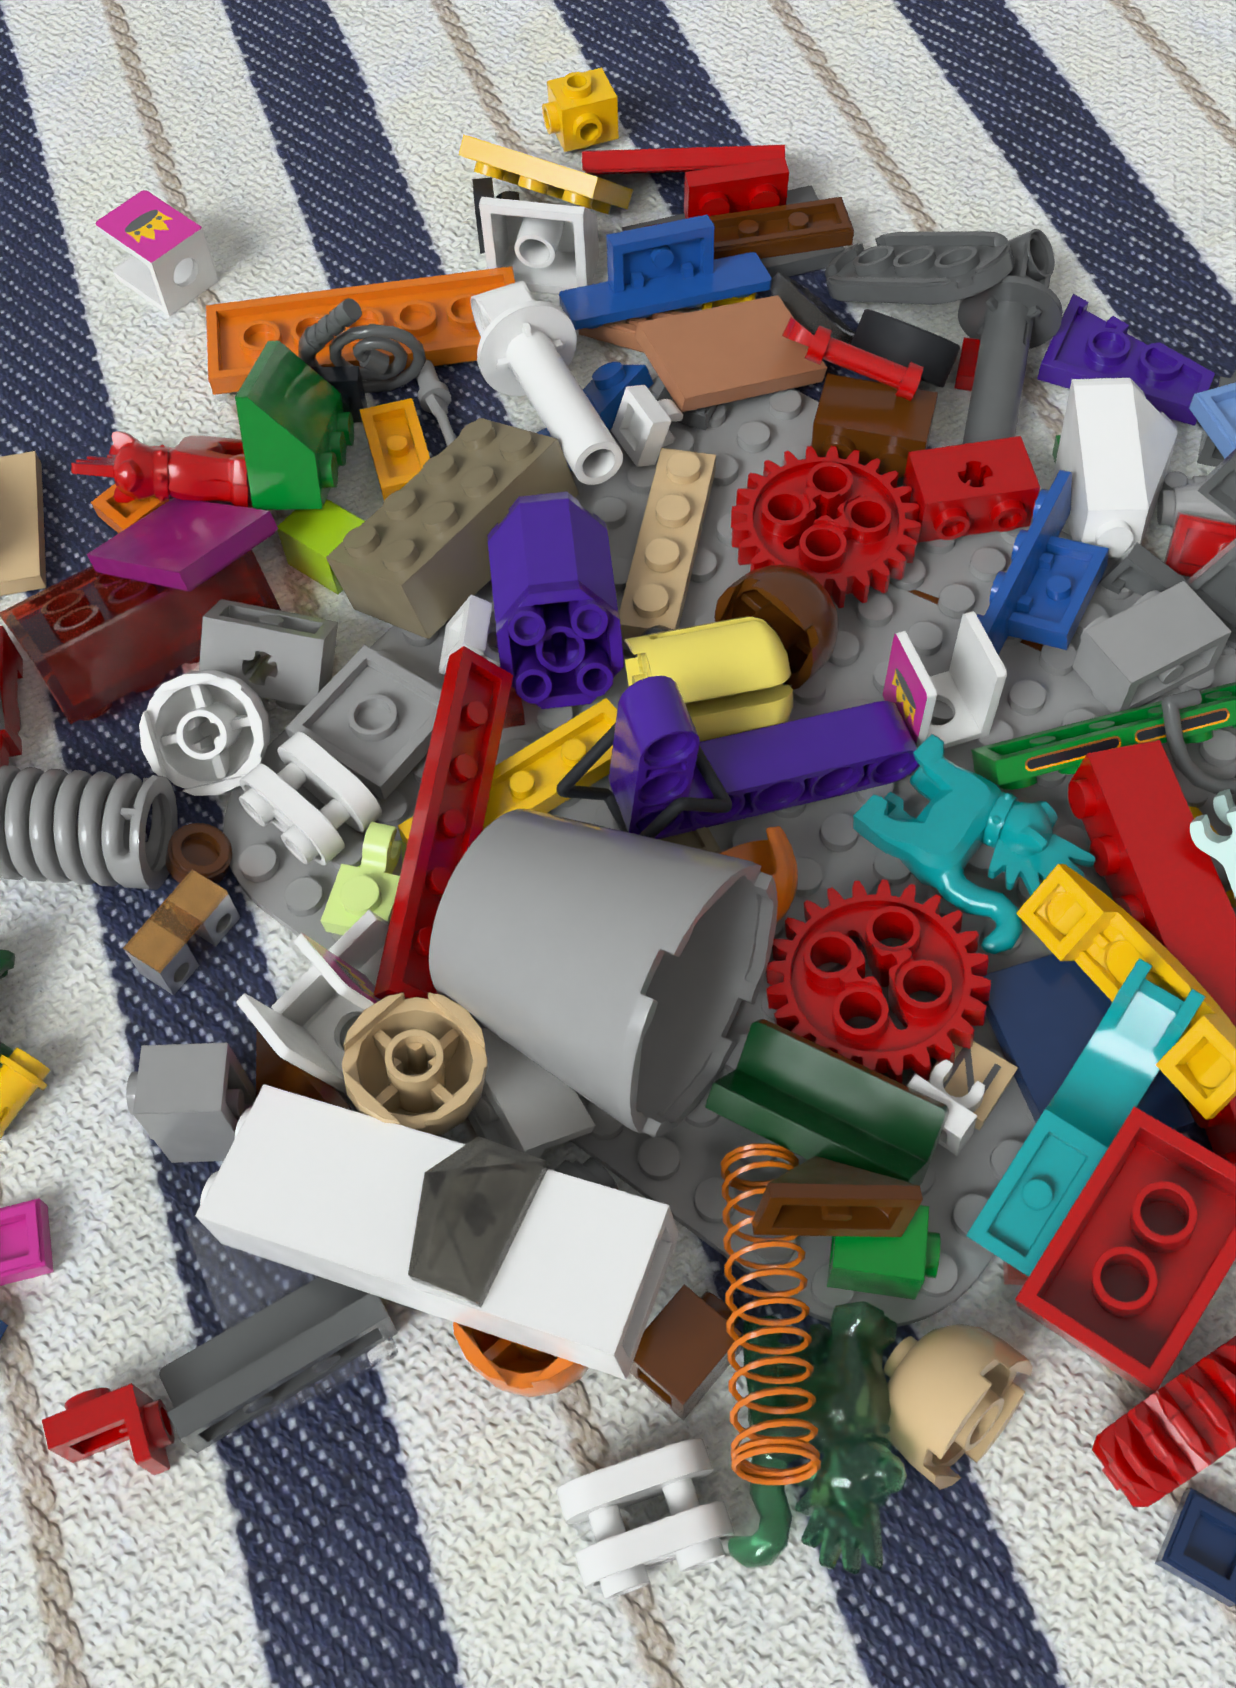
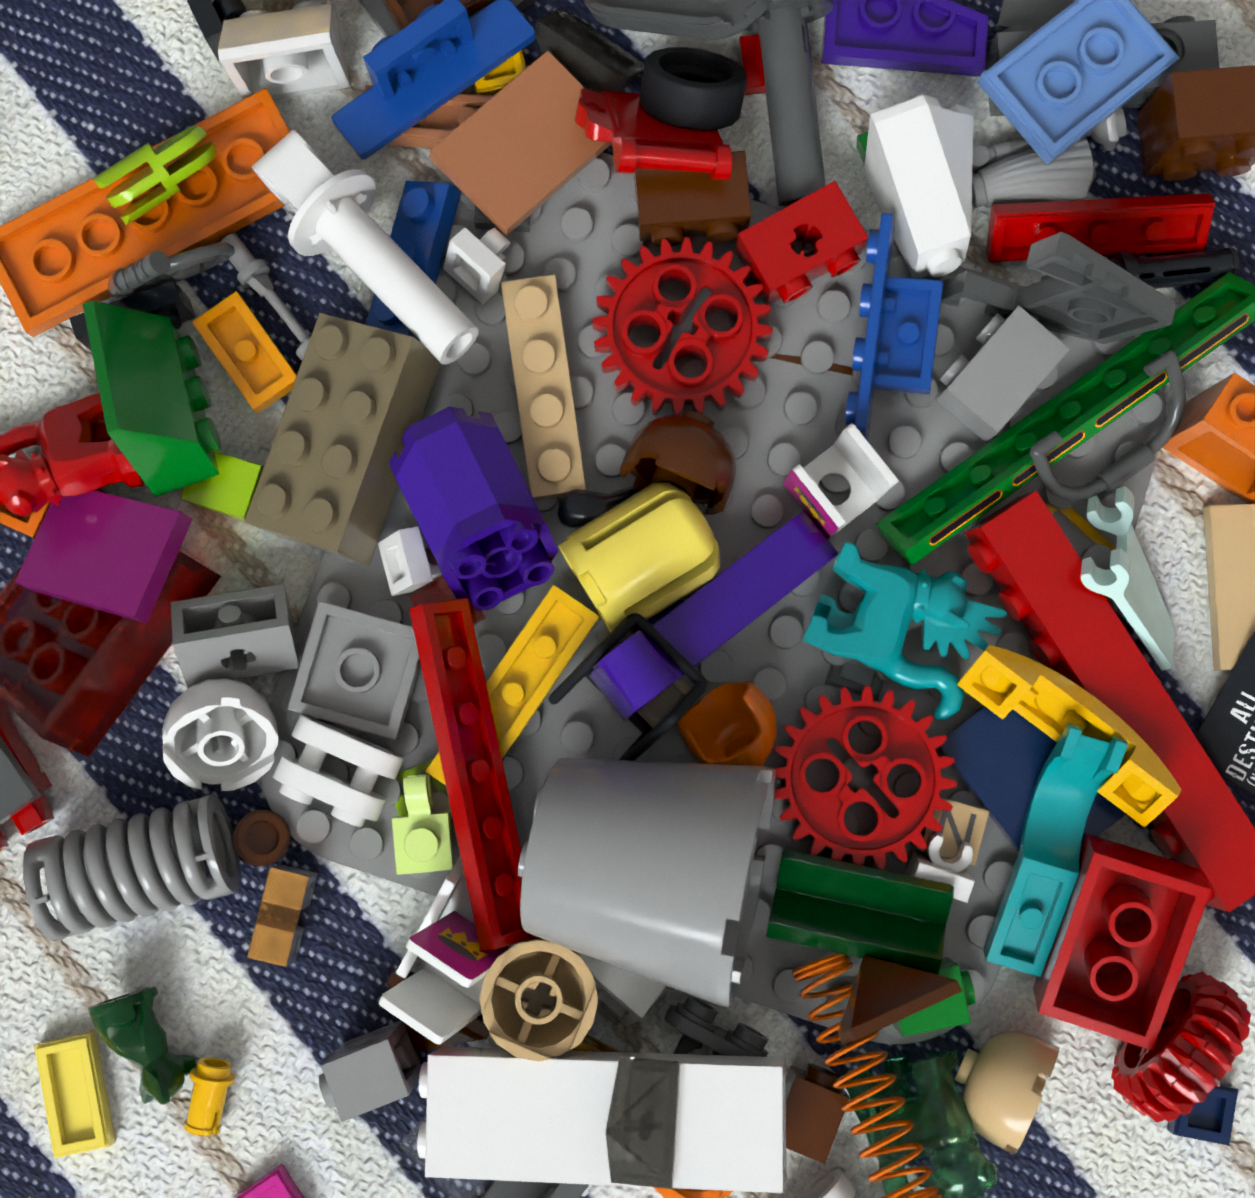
camera: 20 degrees left, 25 degrees up
(385, 286) = (155, 172): none -> lime arm

